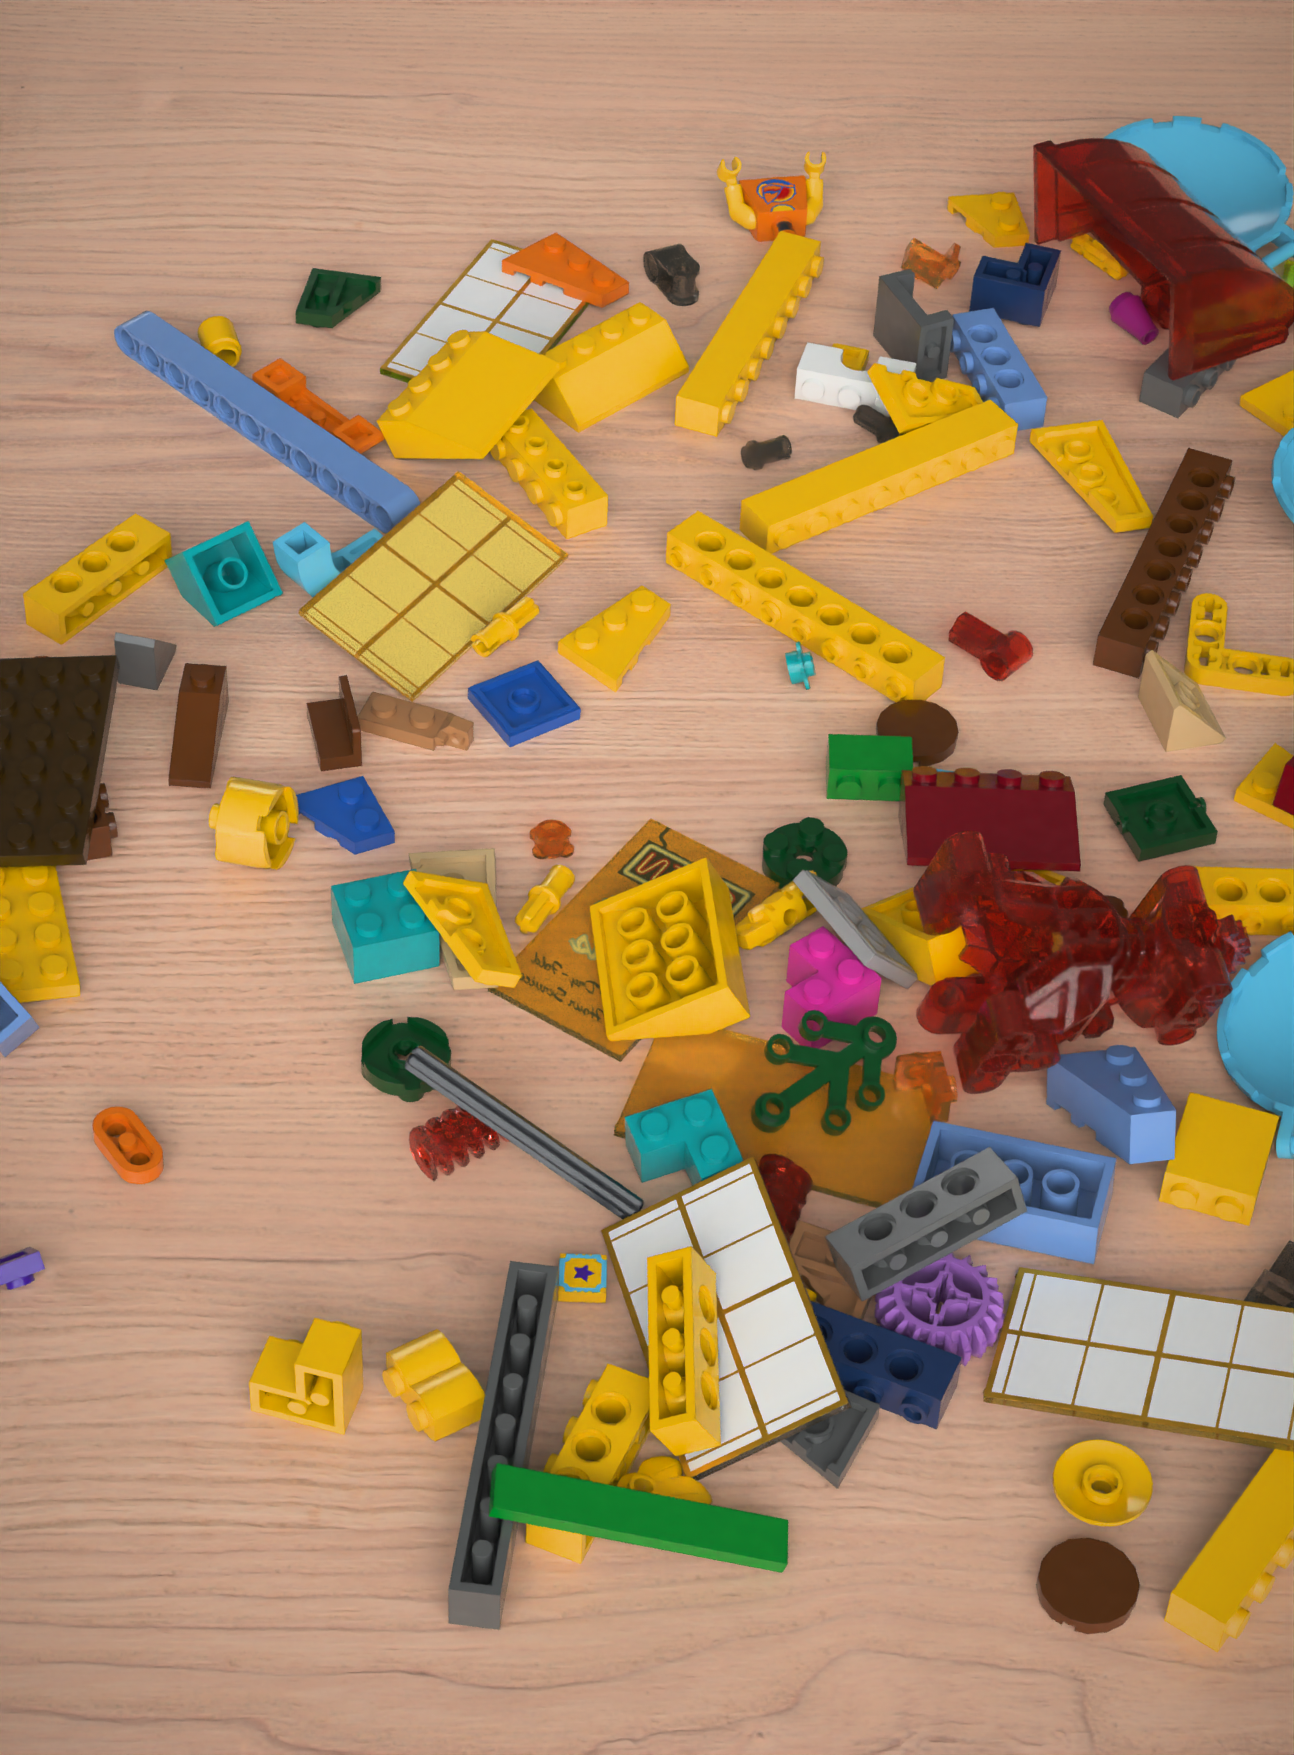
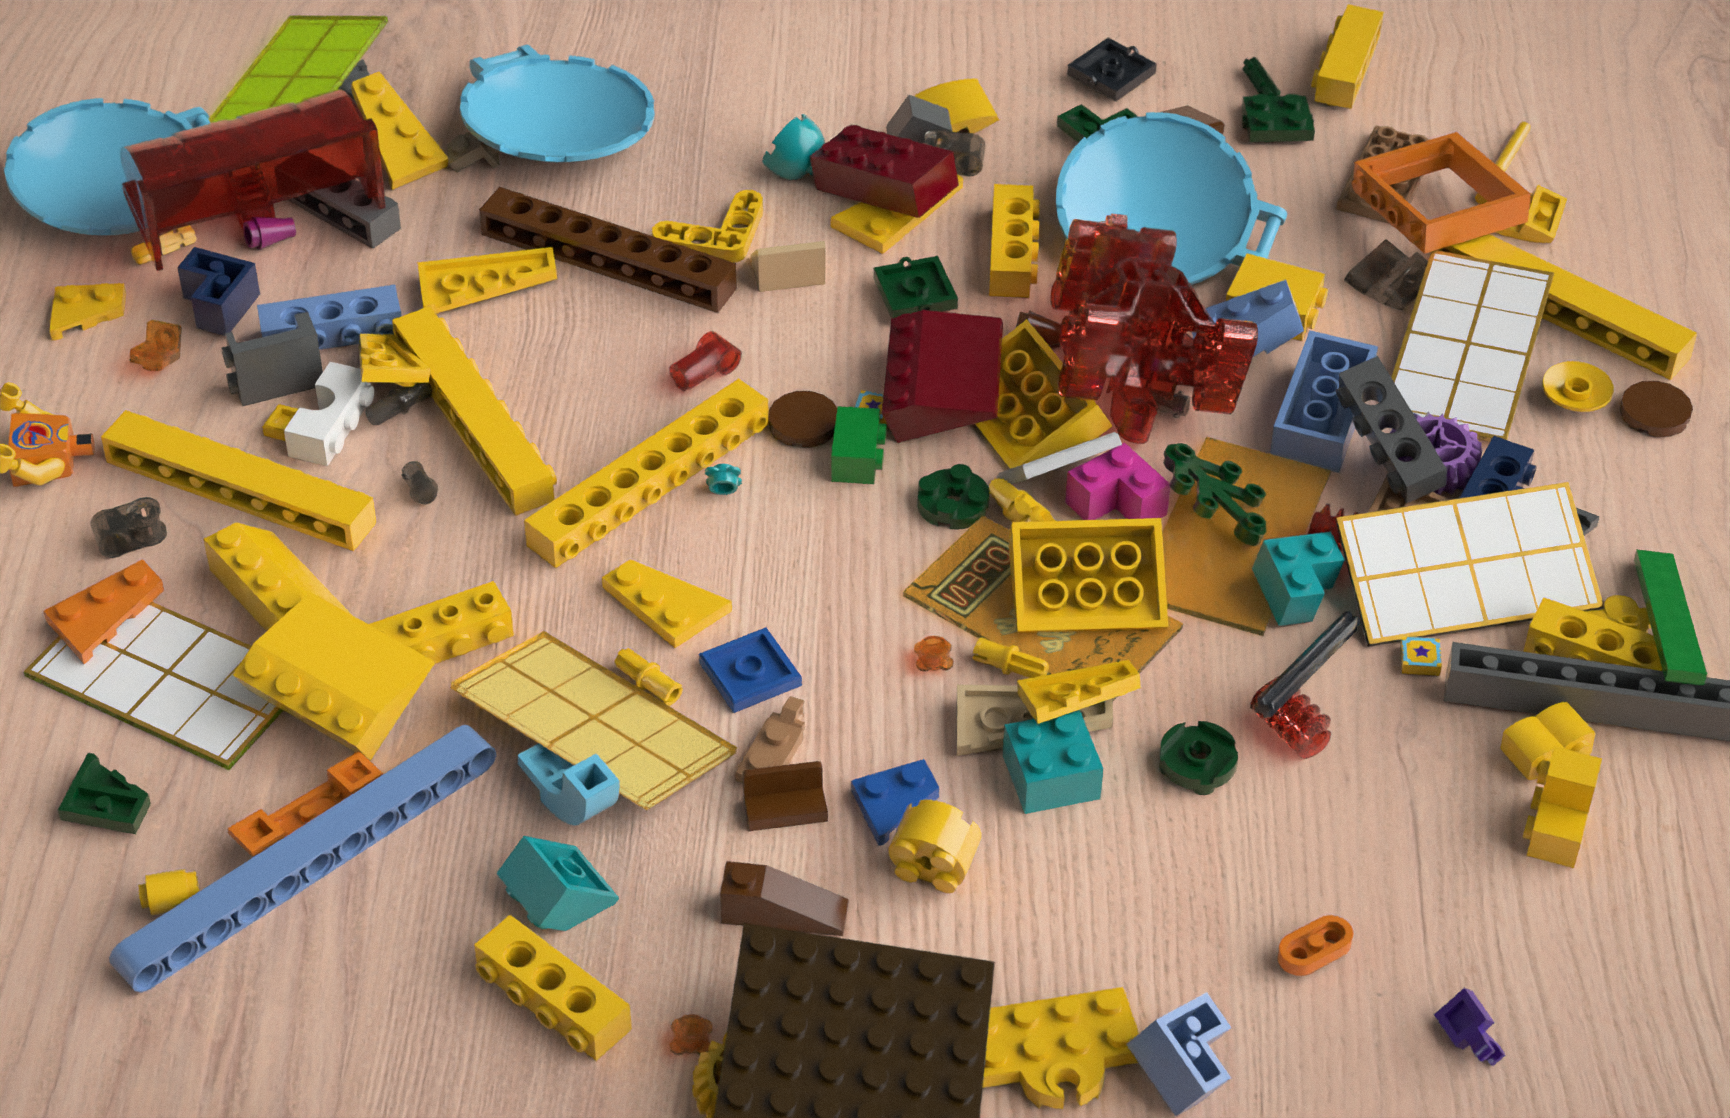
camera: 85 degrees left, 0 degrees up
(142, 660) = (674, 946): dark grey slope -> none
(683, 1351) = (1522, 575): yellow brick -> none
(929, 1074) = (1219, 434): clear orange bracket -> none

